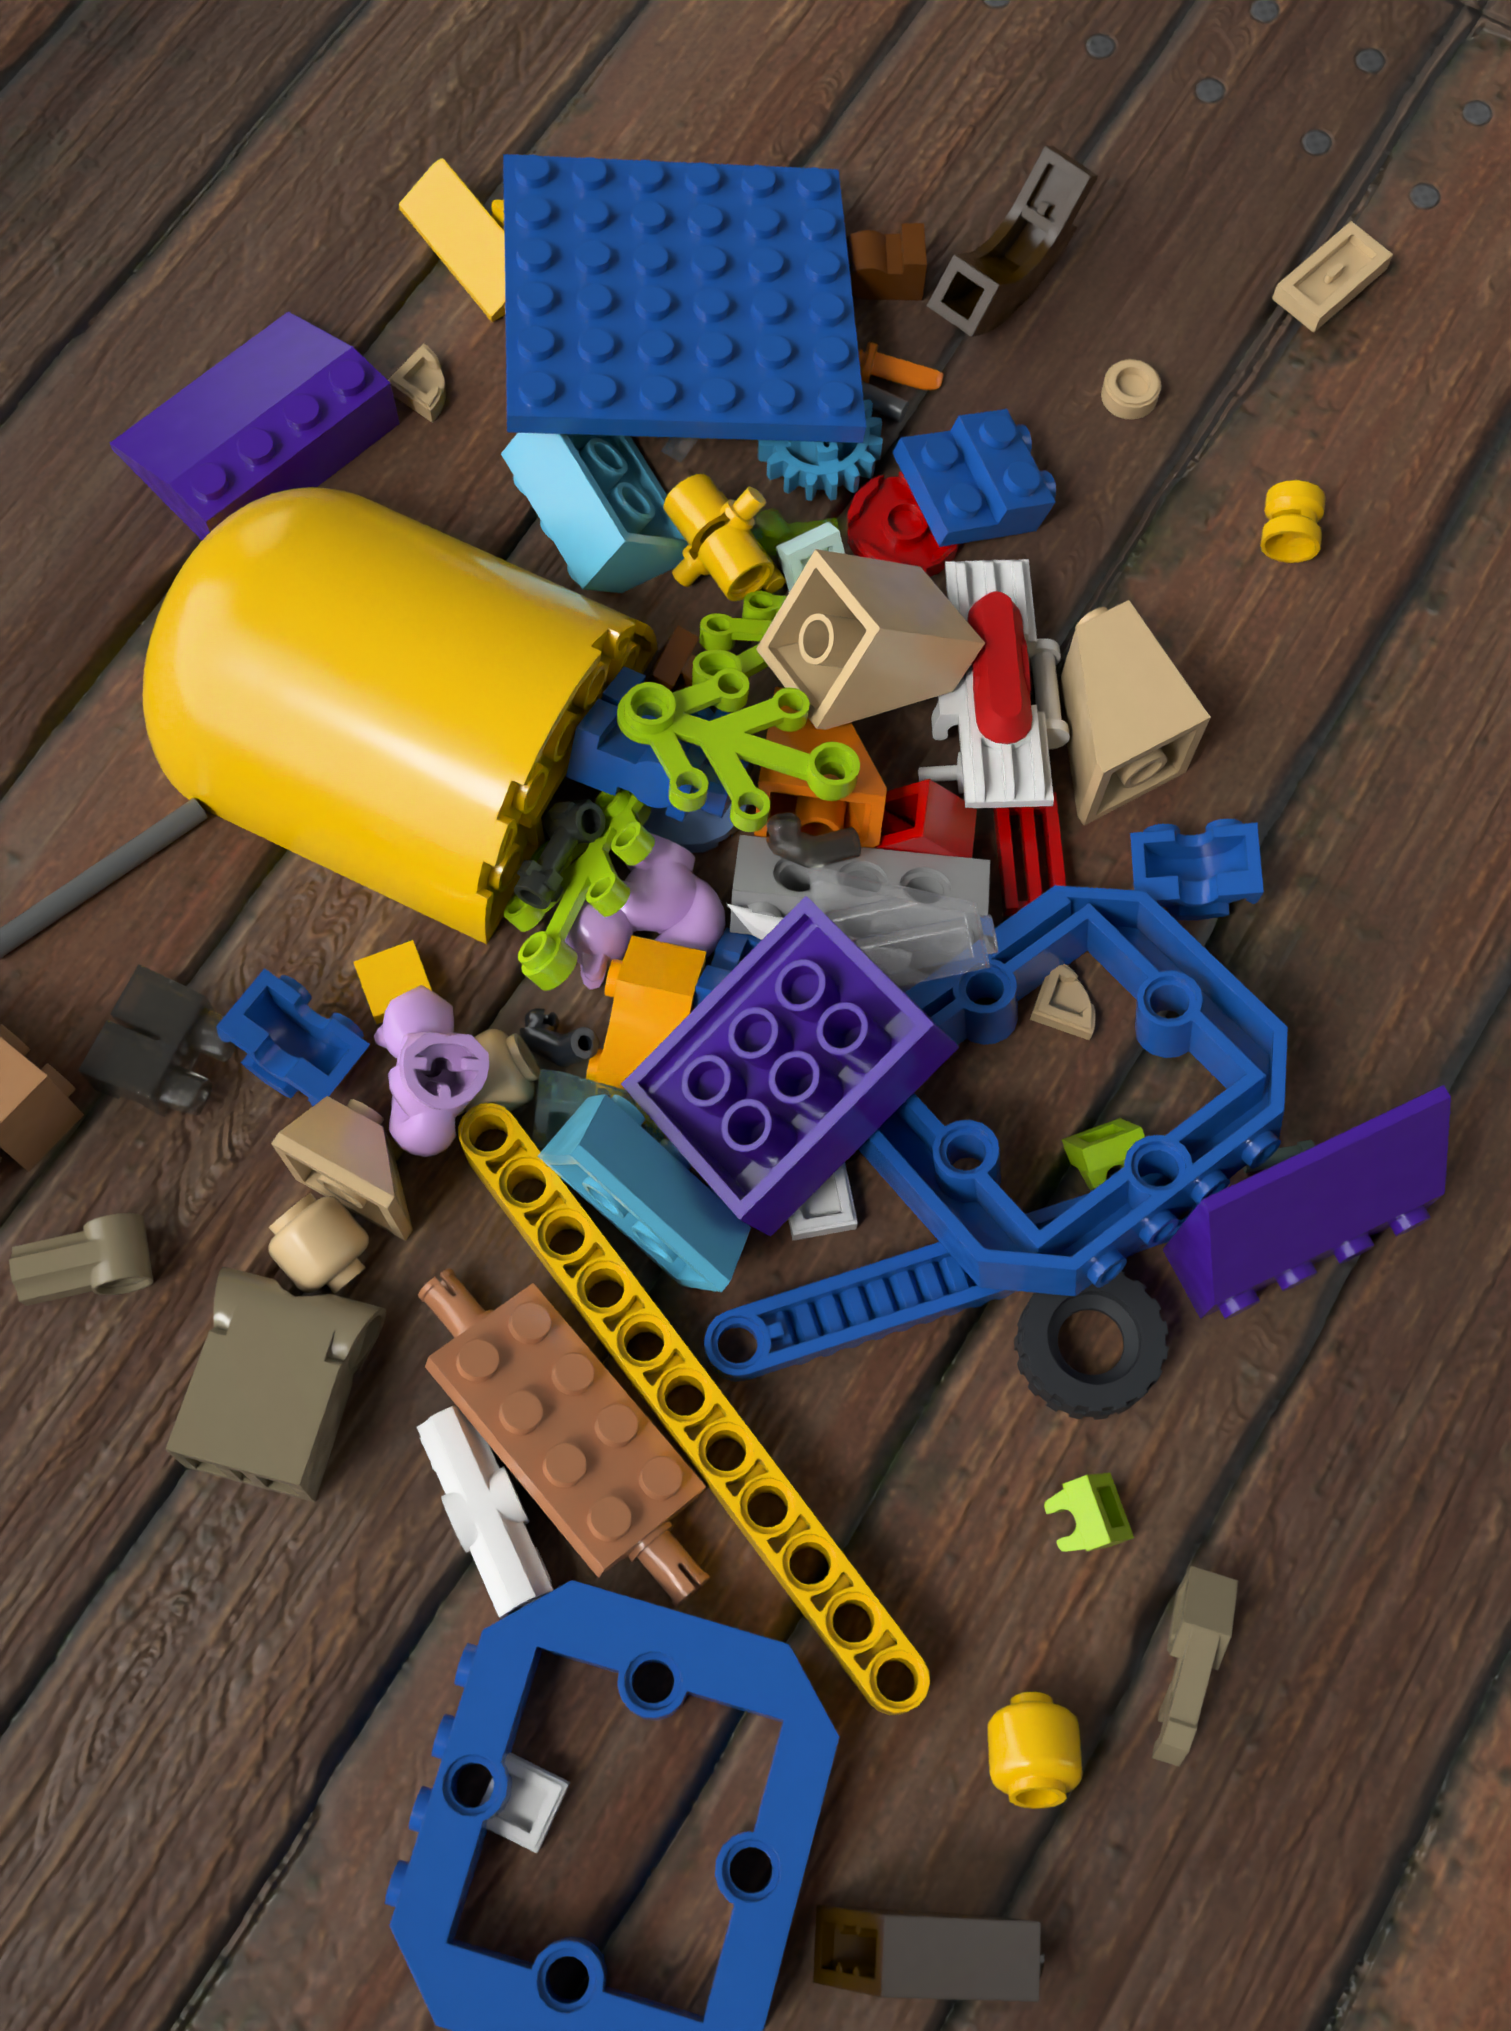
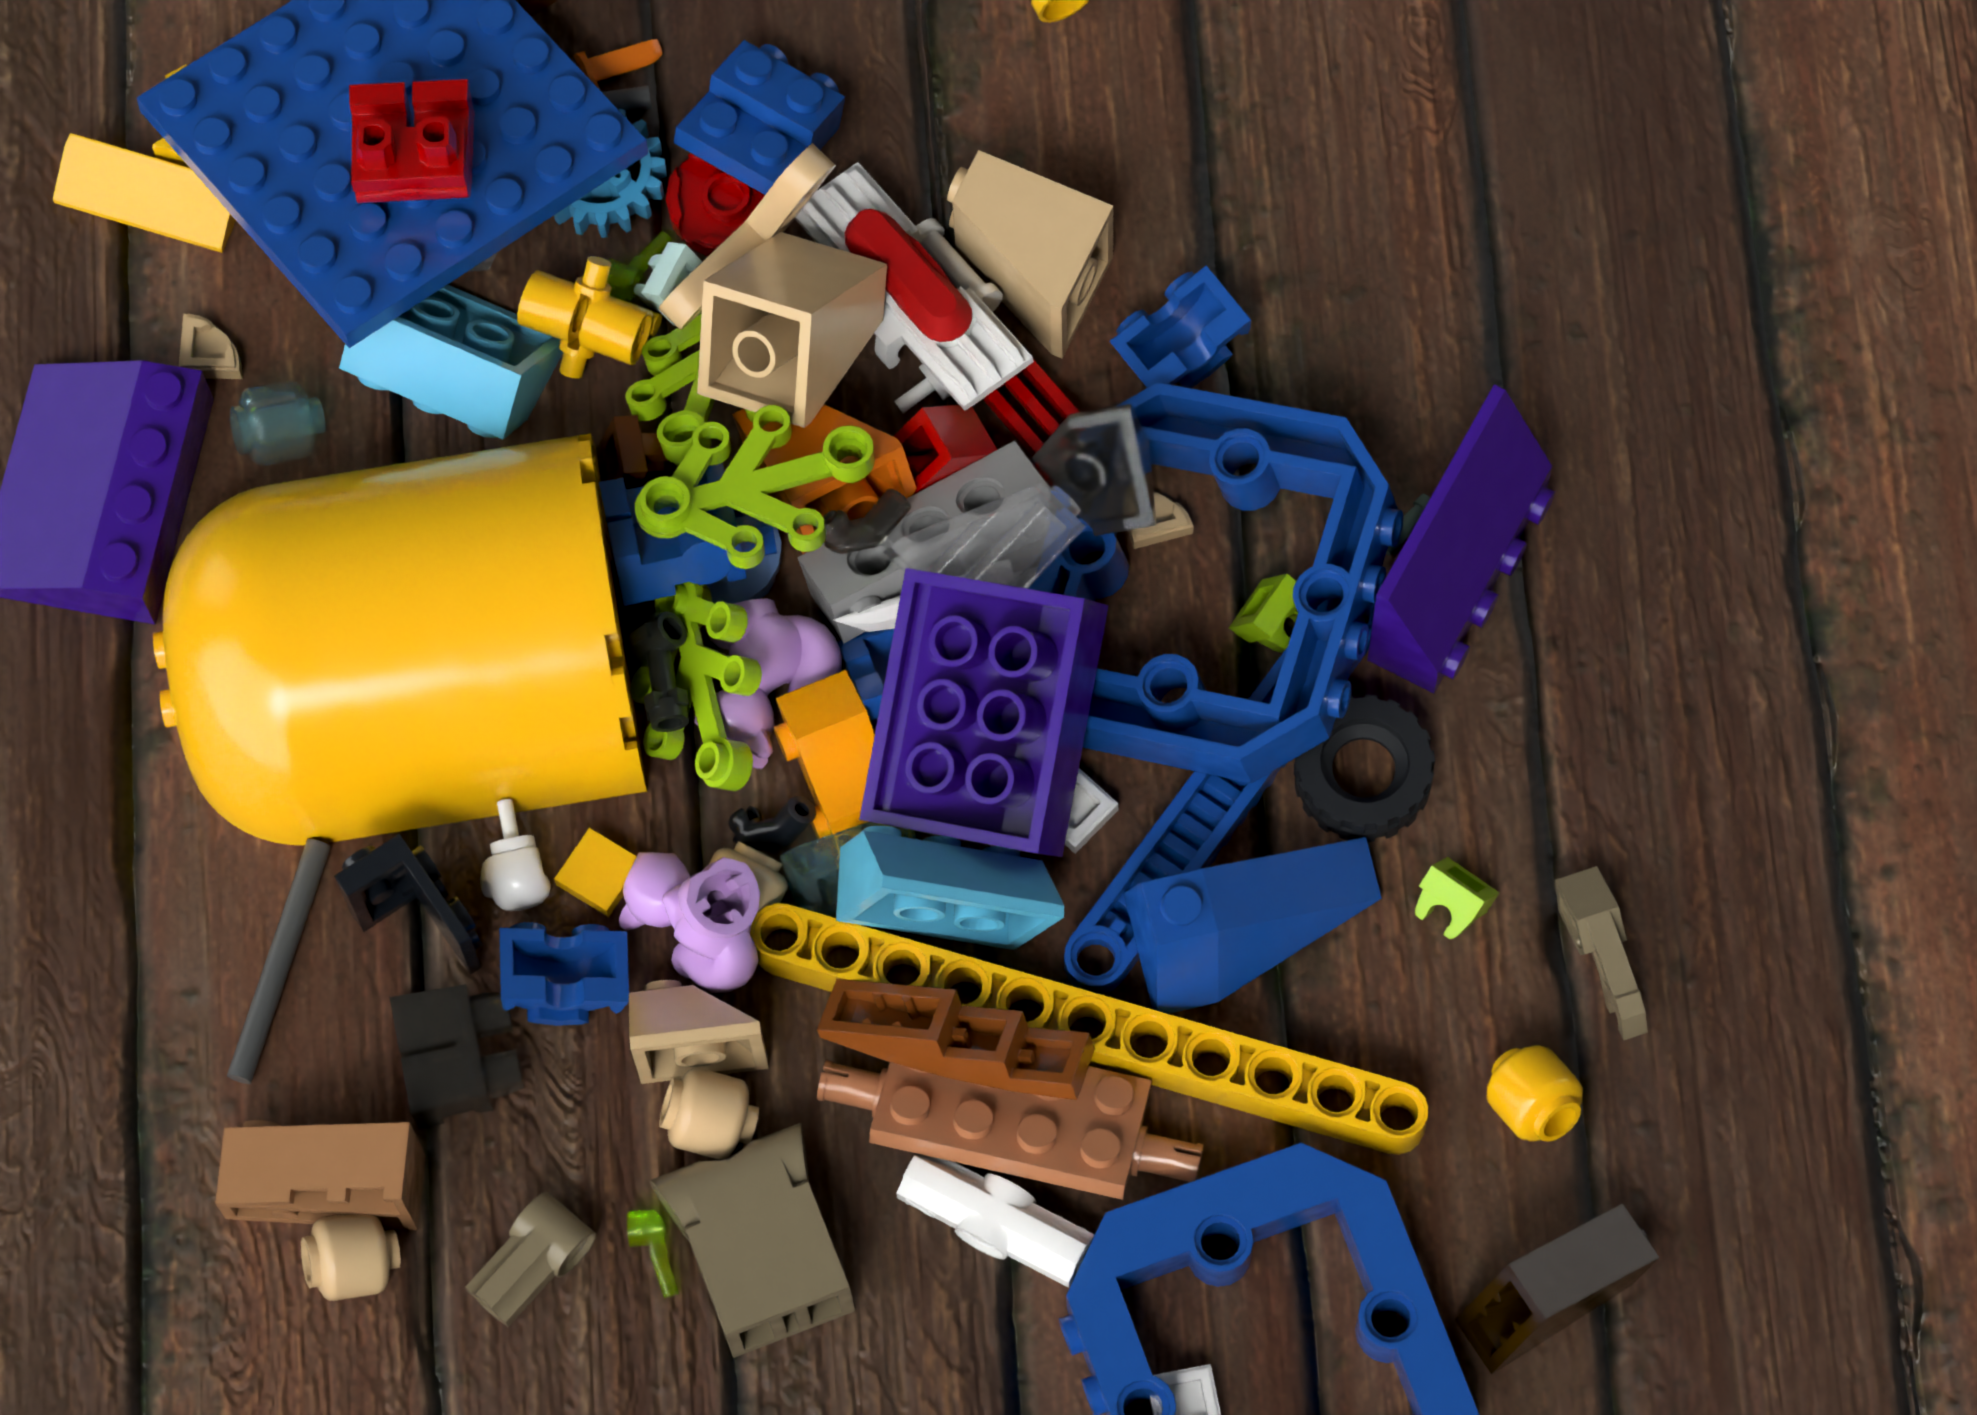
camera: 30 degrees left, 0 degrees up
(197, 1304) = (649, 1229): none -> clear neon green hand
(215, 870) = (391, 876): none -> black bracket
(326, 934) = (515, 869): none -> white piece
(423, 465) = (276, 423): none -> clear light blue head
(559, 1333) = (964, 1043): none -> dark orange slope
(672, 301) = (406, 161): none -> red hips
(874, 1400) = (1234, 921): none -> blue wedge
(930, 544) = (769, 218): none -> tan beam
(1044, 929) = (1103, 467): none -> clear smoke slope

